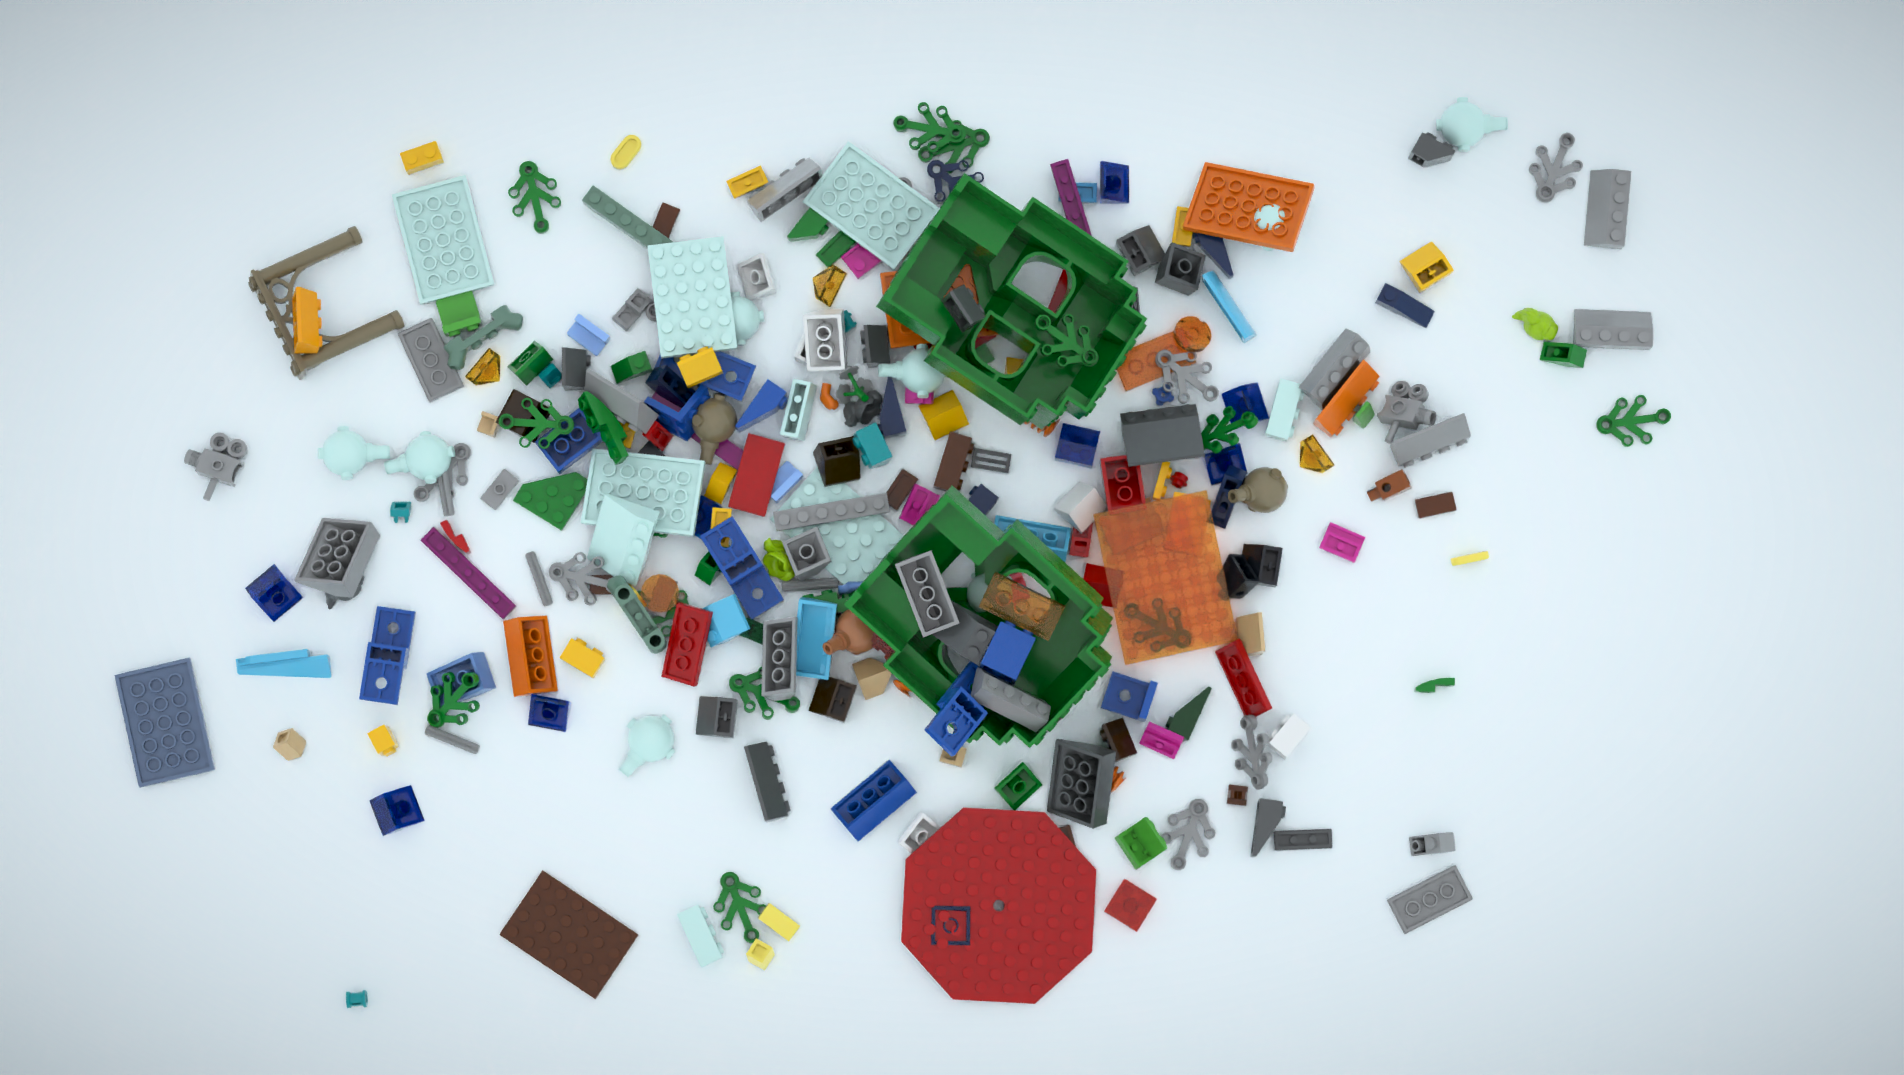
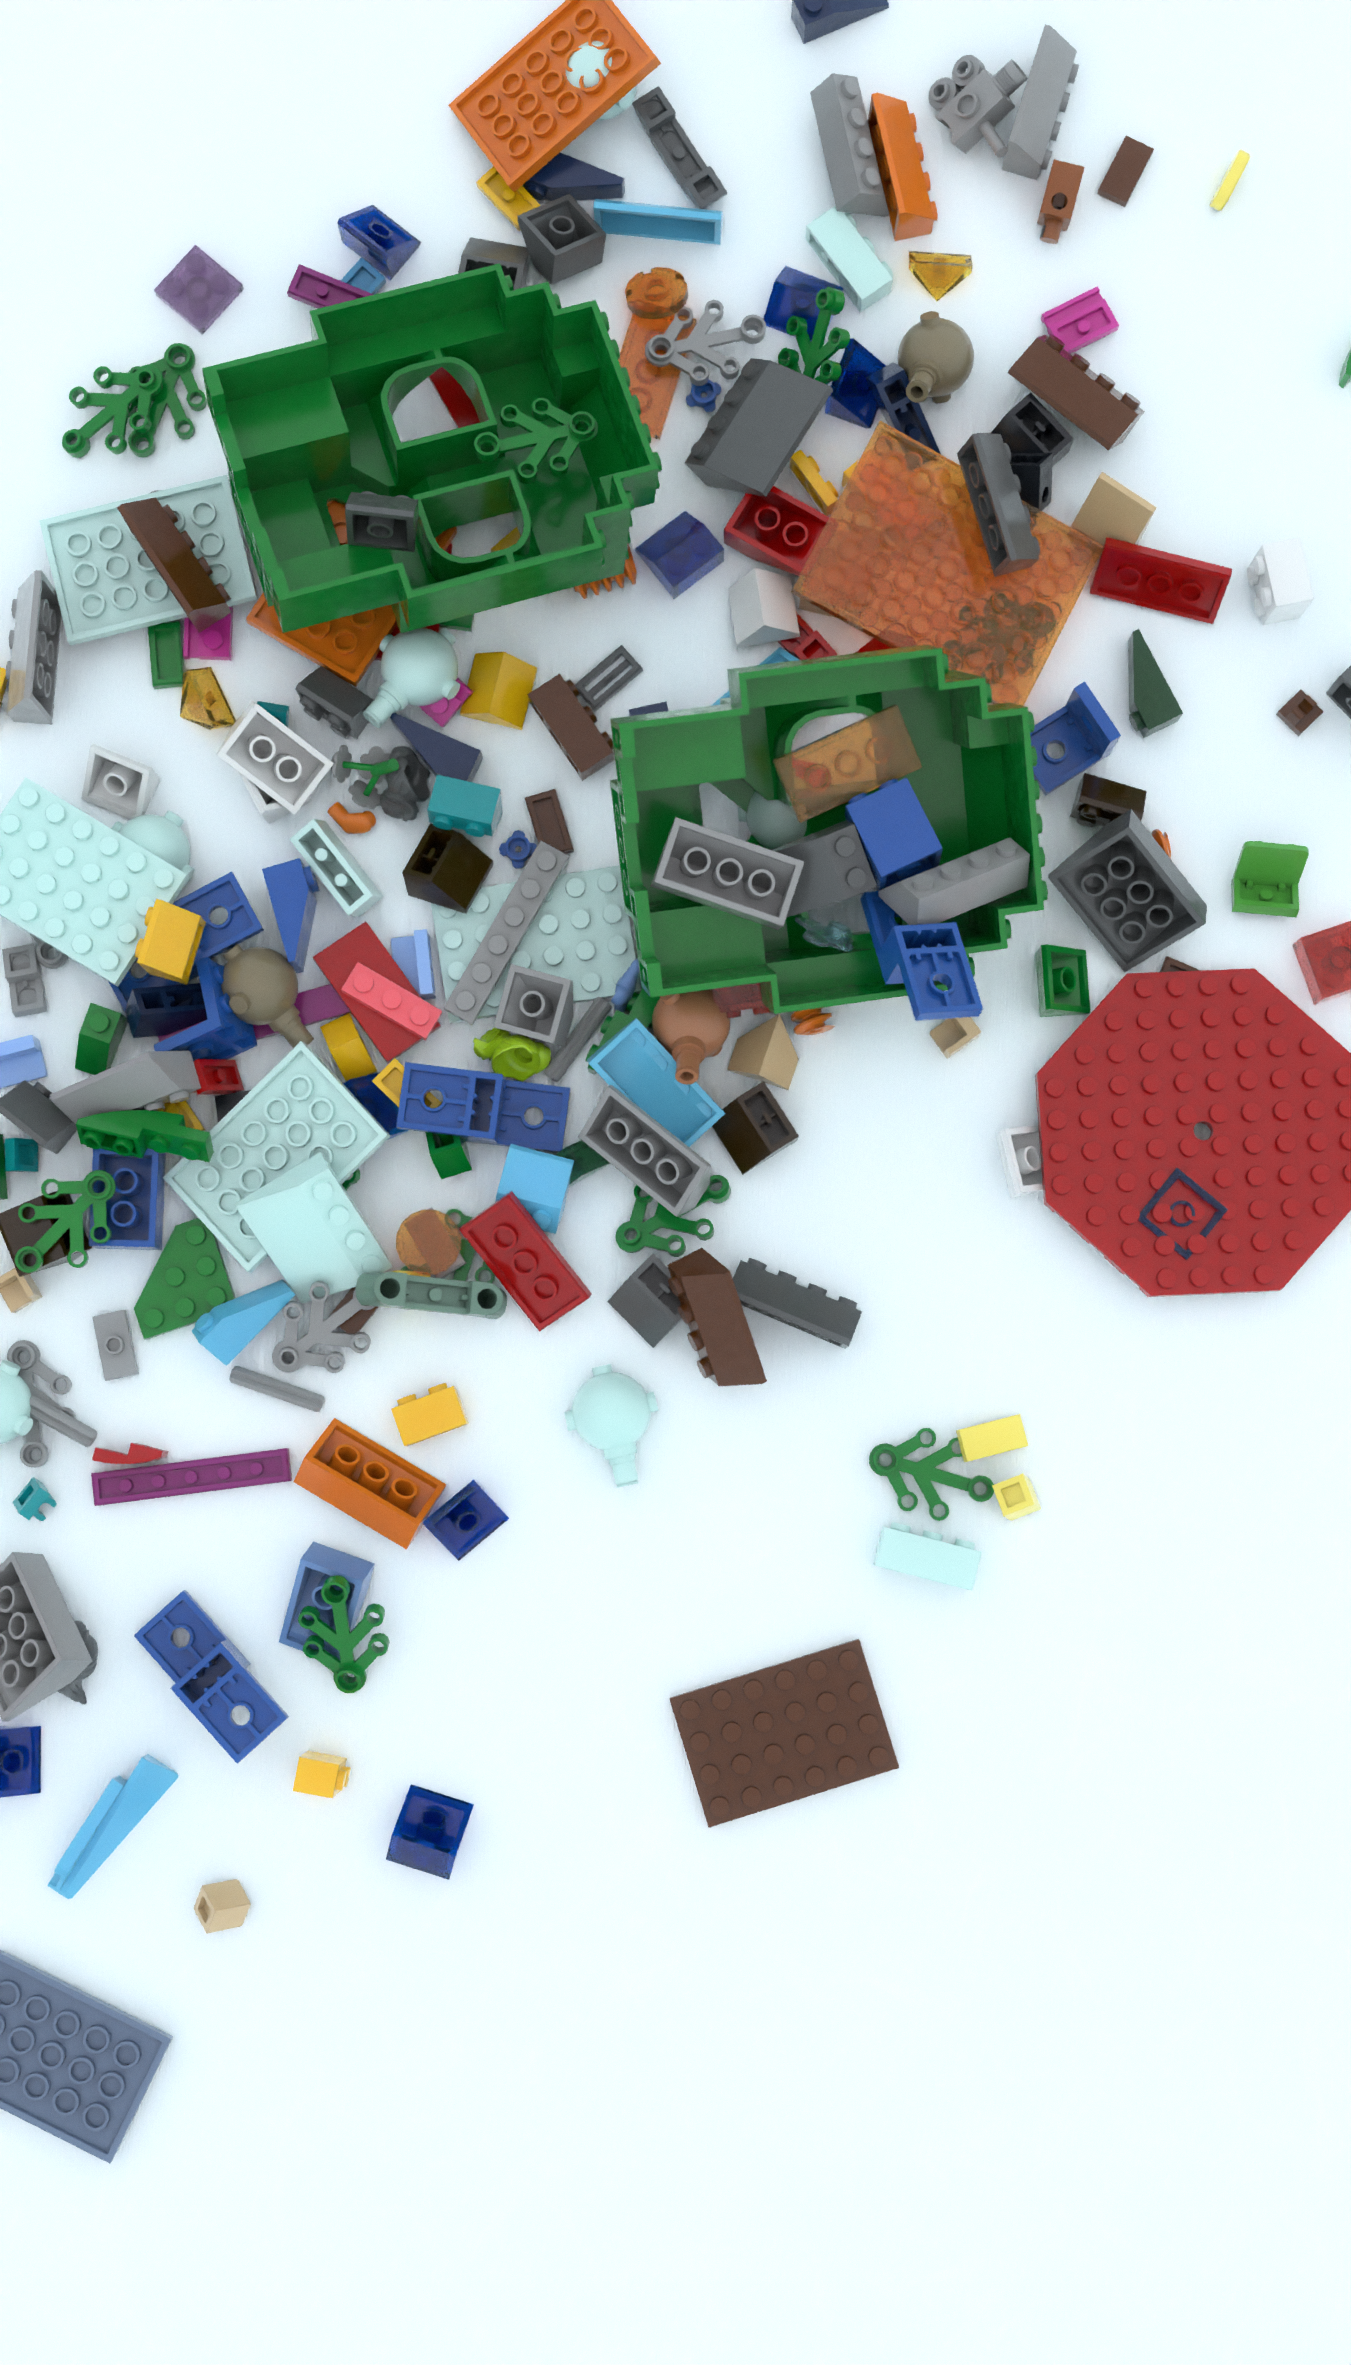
camera: 50 degrees left, 0 degrees up
(357, 999) = (640, 2094): teal bush -> none
(452, 739) = (395, 1679): light grey axle -> none
(554, 536) = (236, 1322): none -> medium azure slope
(728, 751) = (715, 1320): none -> reddish brown slope
(757, 485) = (391, 1001): none -> coral plate
(809, 227) = (110, 664): green slope -> none
(872, 481) = (517, 840): none -> blue plate
(873, 800) = (931, 1183): blue slope -> none
(877, 222) = (175, 561): none -> reddish brown slope
(917, 504) = (590, 815): dark pink plate -> none
(937, 657) = (833, 935): none -> clear light blue plate
(944, 168) = (206, 436): dark blue plant -> none
(1021, 119) = (198, 289): none -> clear purple plate
(1161, 740) = (1153, 748): dark pink plate -> none
(1179, 480) = (831, 459): red plate -> none
(1190, 831) = (1300, 809): light grey plant -> none
(1211, 576) = (998, 503): none -> dark grey slope
(1258, 774) = (1268, 645): light grey plant -> none
(1271, 288) = (677, 150): none -> dark grey slope
(1302, 569) = (1077, 391): none -> reddish brown slope
(1364, 415) = (937, 163): bright green slope -> none

